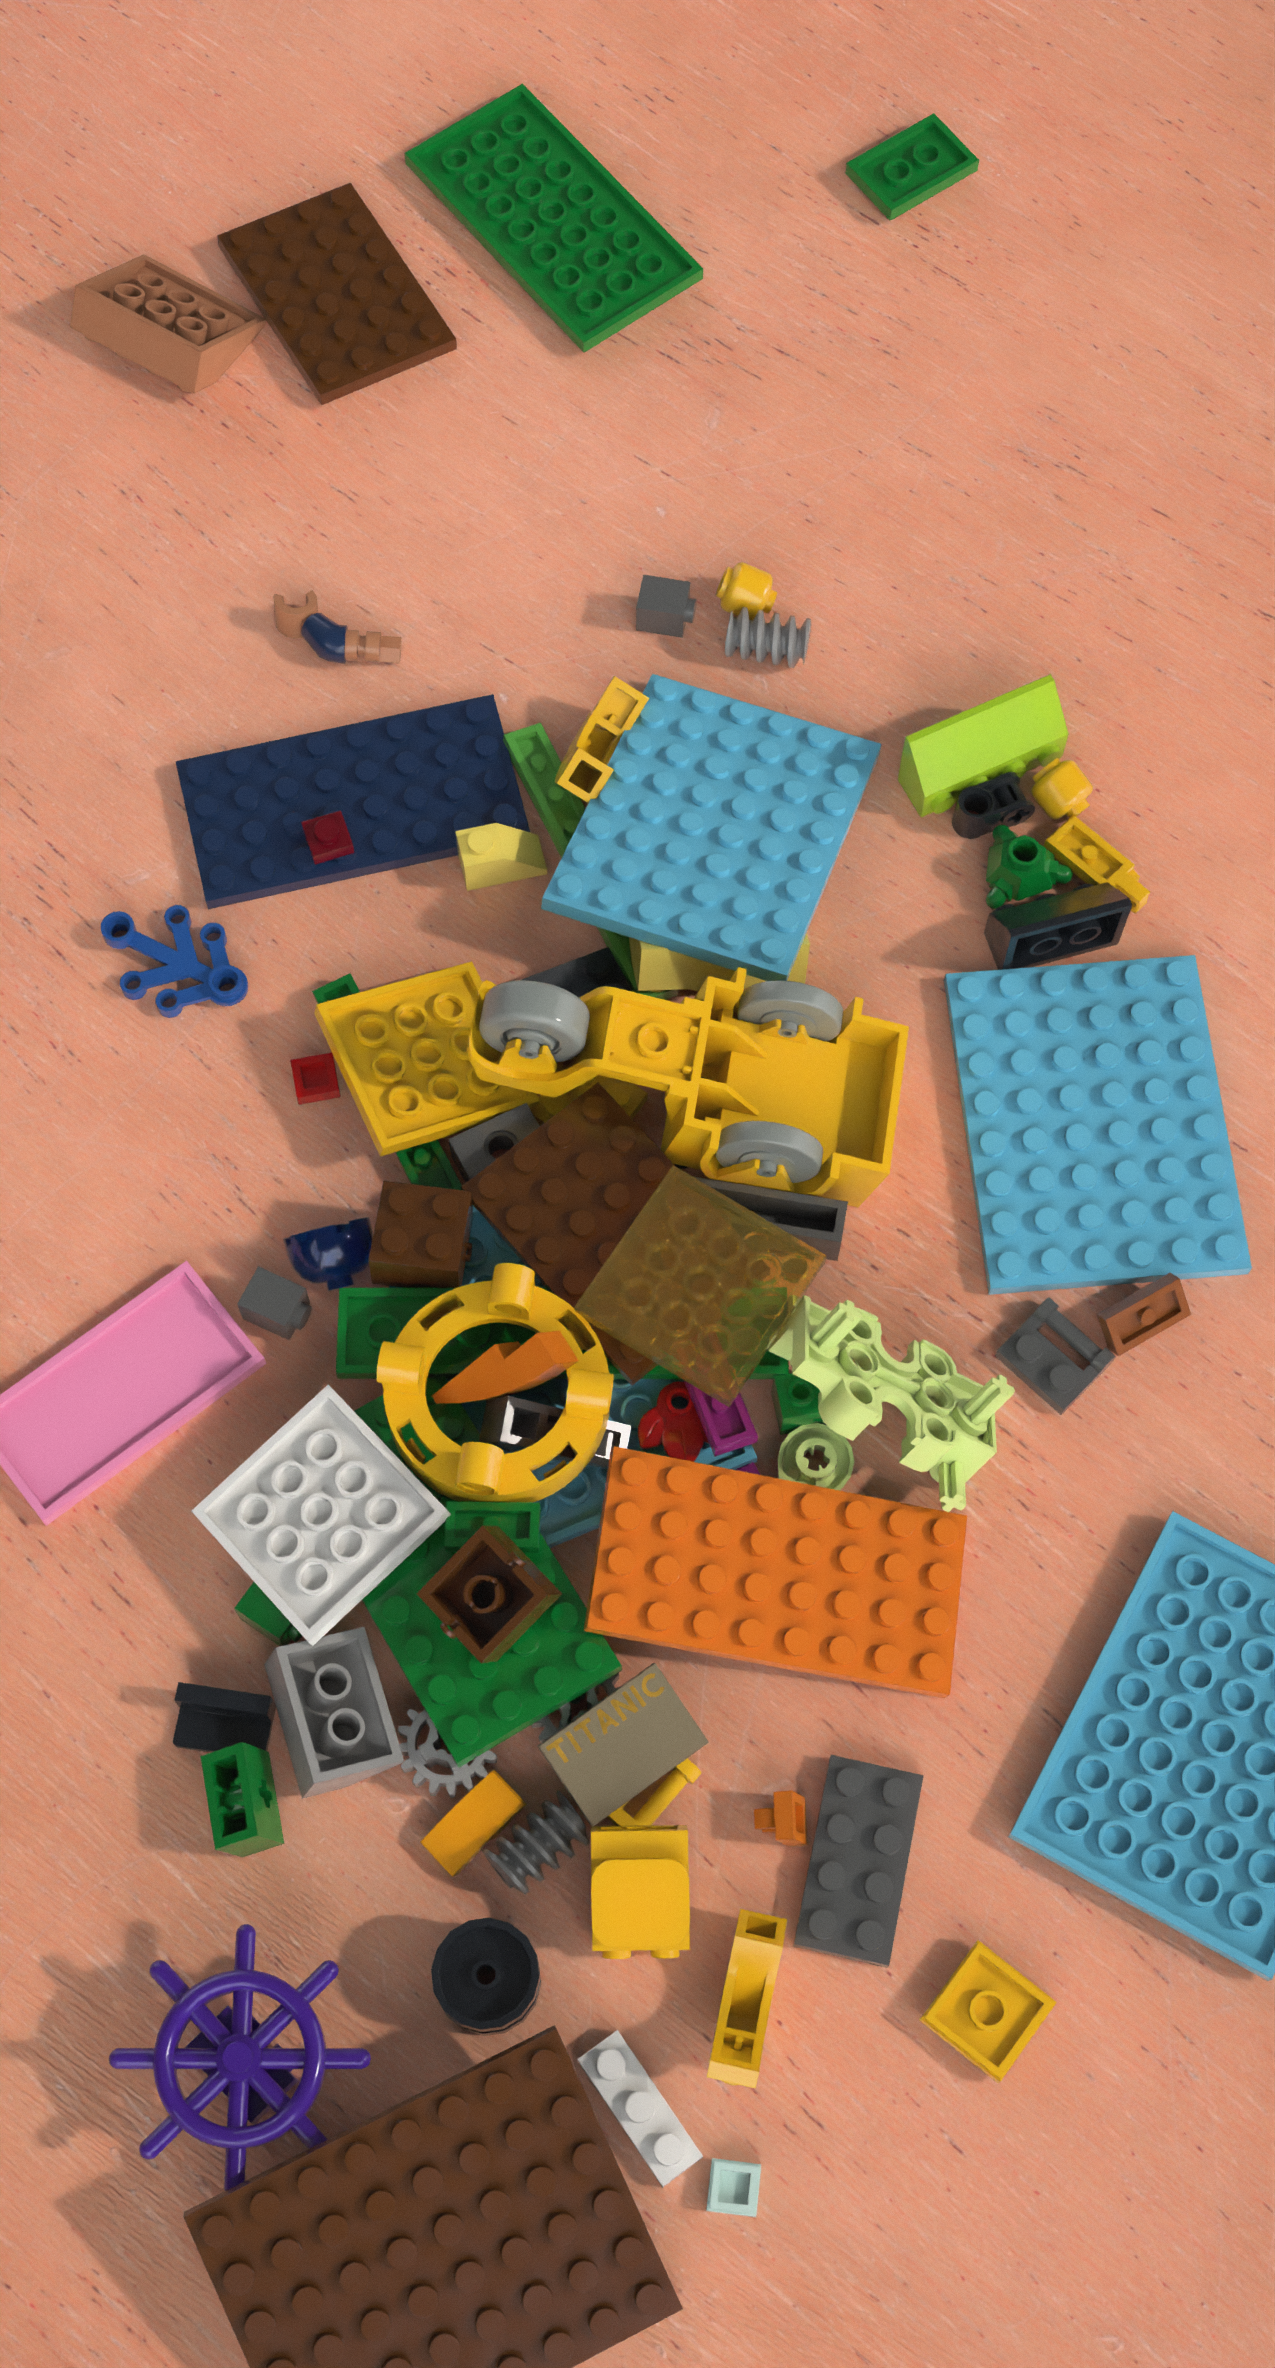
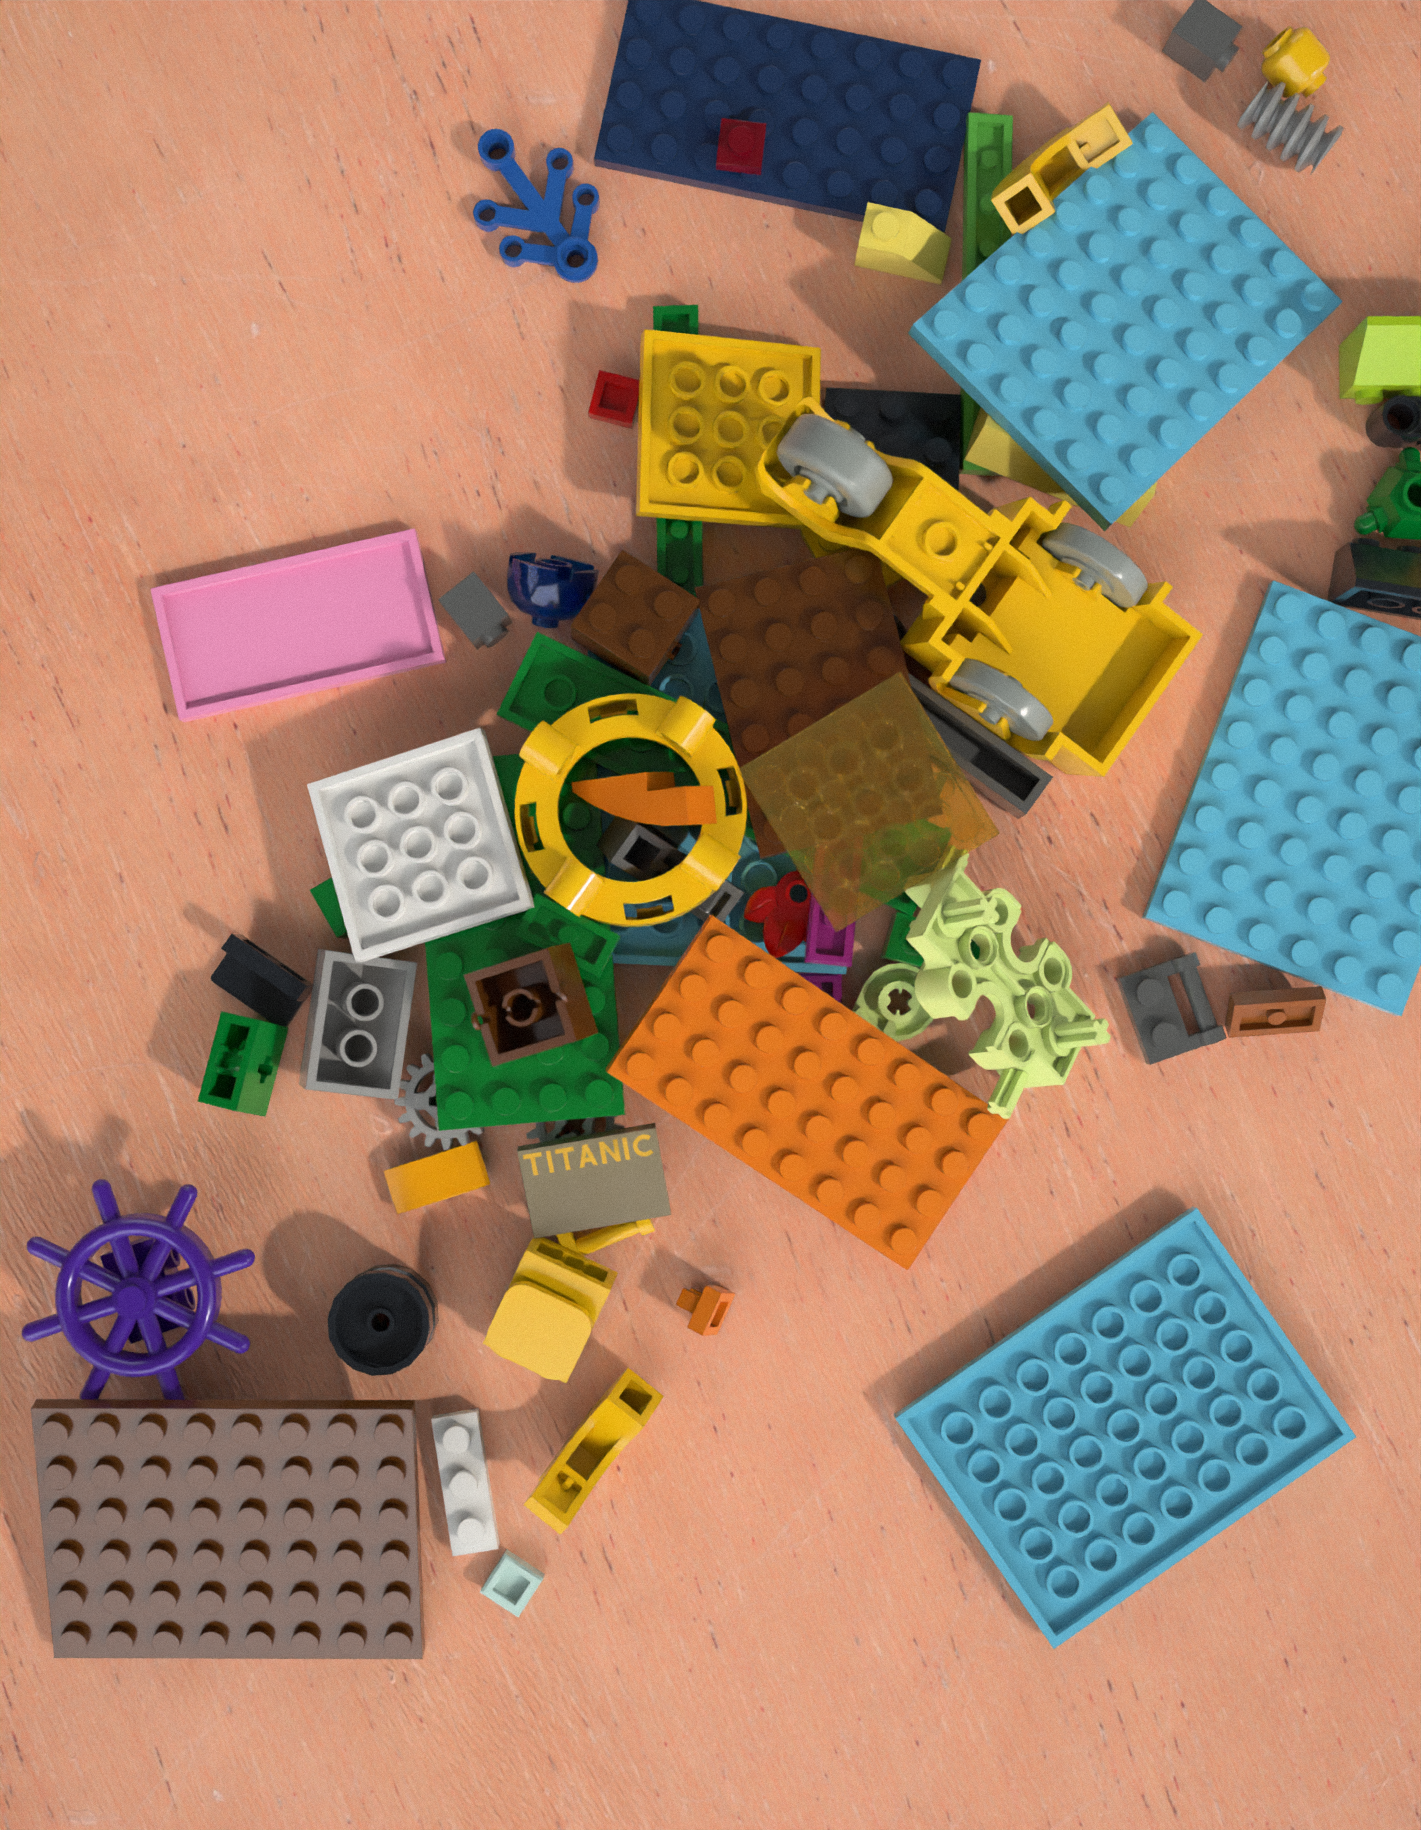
camera: 30 degrees right, 20 degrees up
(474, 1147) = (733, 544): dark grey brick -> none
(538, 1844) = (481, 1227): dark grey piece -> none
(858, 1861) = (754, 1370): dark grey plate -> none
(988, 2011) = (797, 1551): yellow plate -> none

